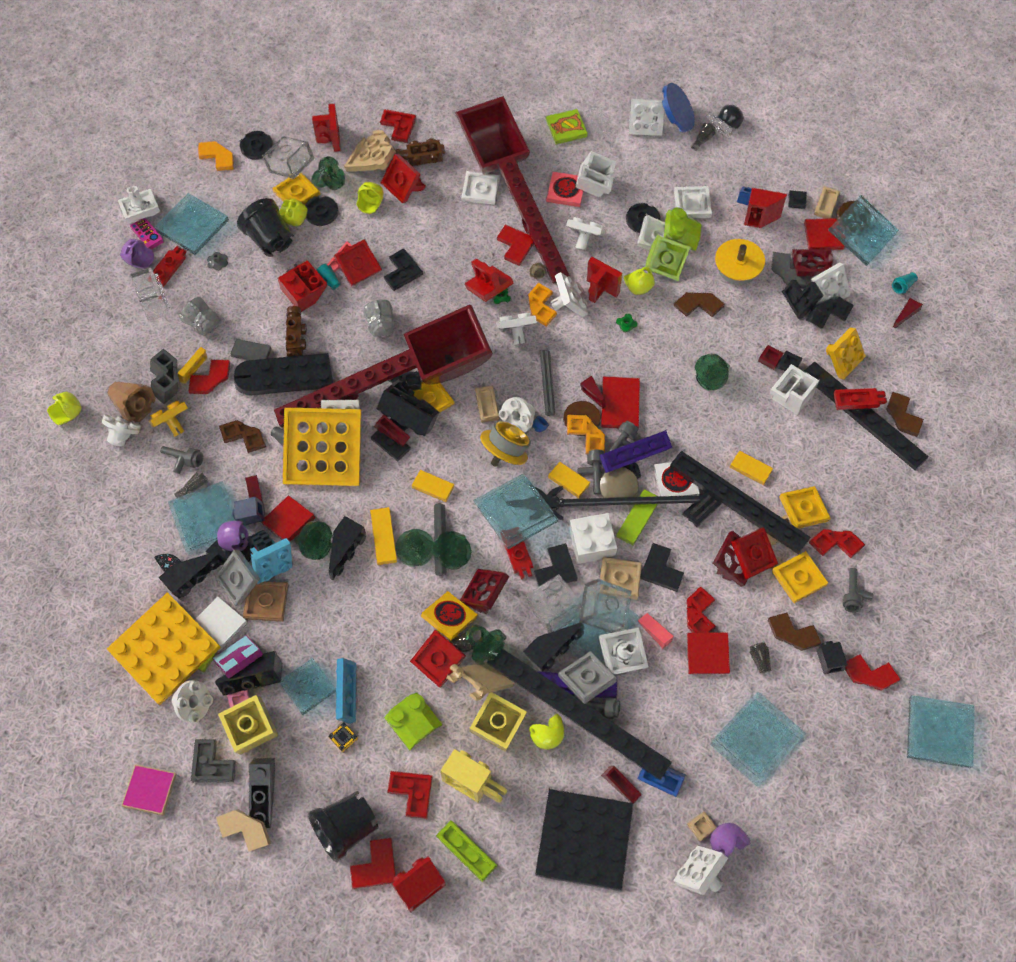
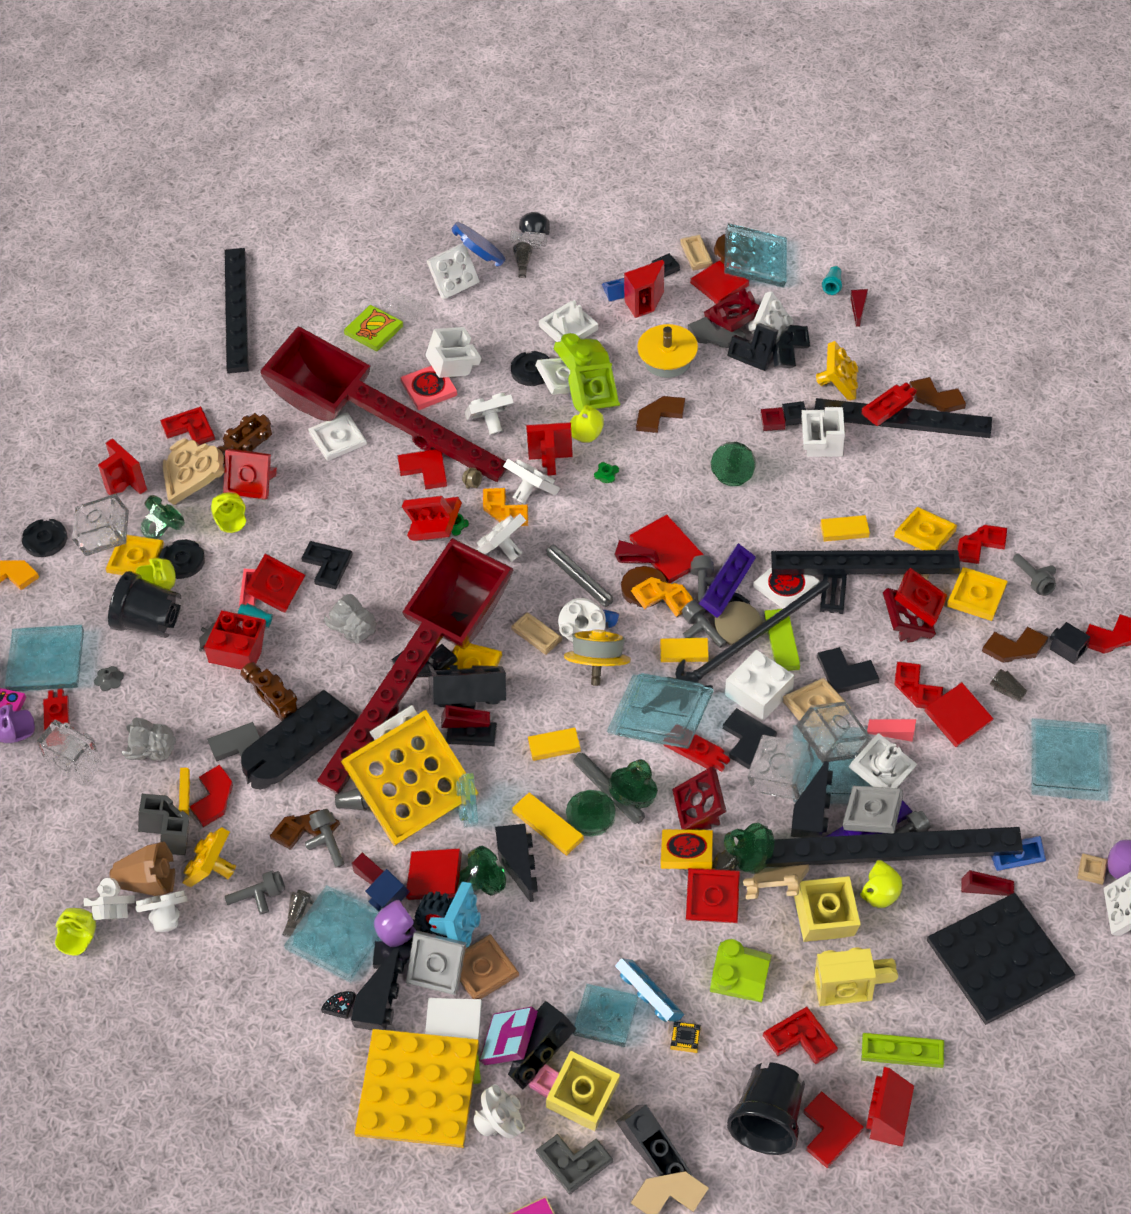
camera: 35 degrees left, 10 degrees down
(95, 402) = (109, 904): none -> white hips
(250, 438) = (322, 821): none -> dark grey piece
(347, 480) = (466, 789): none -> clear light blue plate
(492, 62) = (236, 311): none -> black plate

